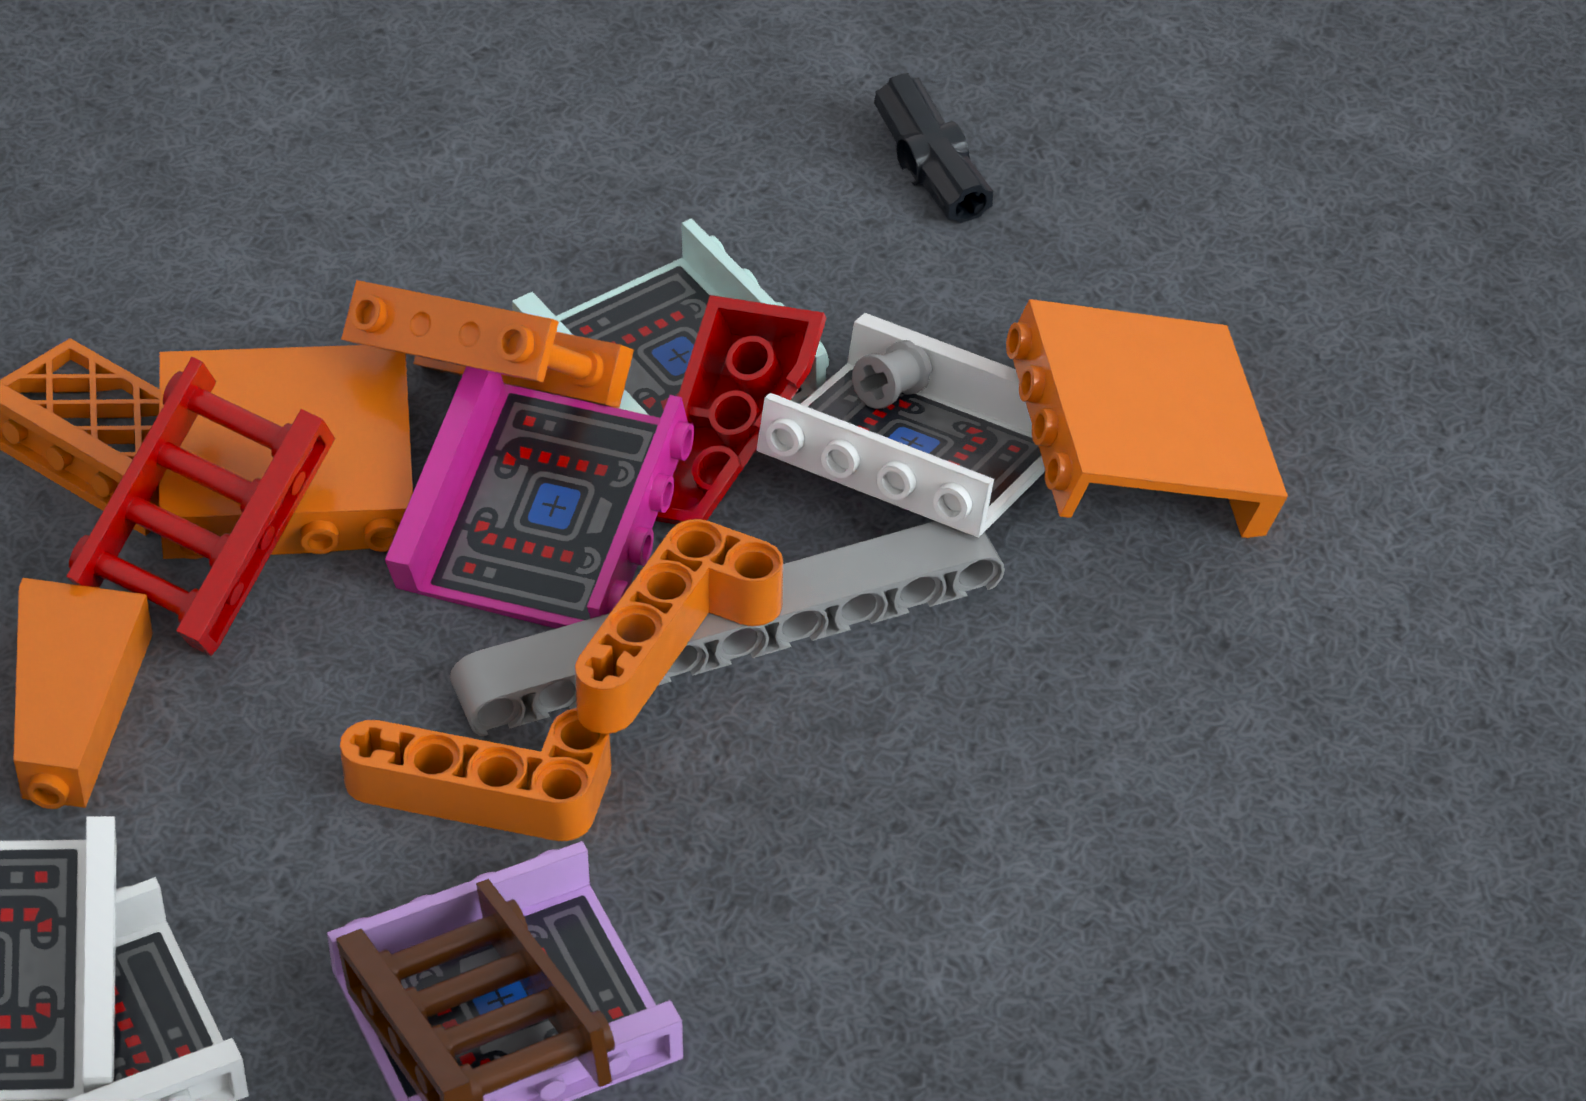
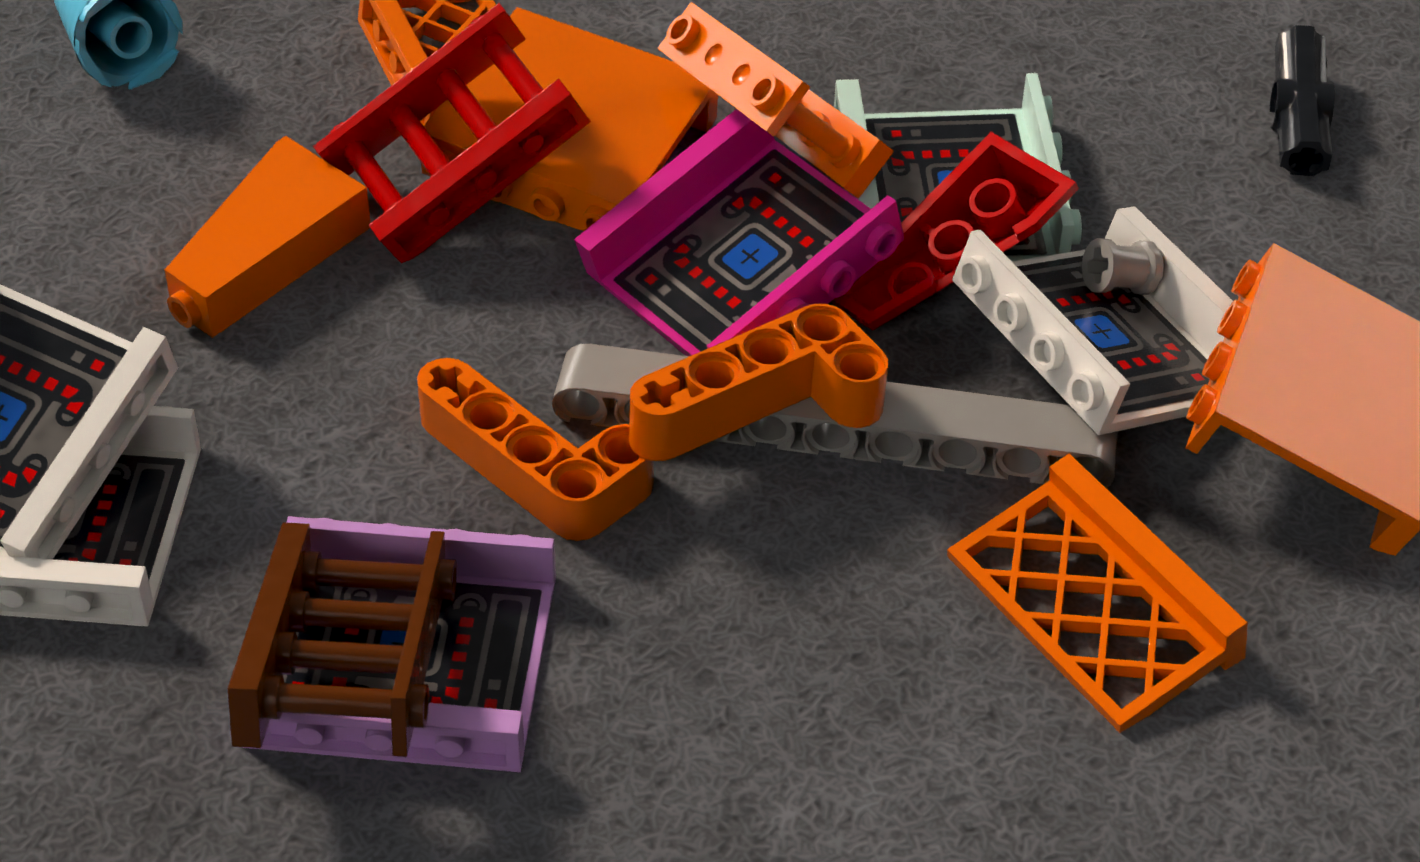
camera: 30 degrees right, 0 degrees up
(1087, 638) = (1146, 570): none -> orange fence

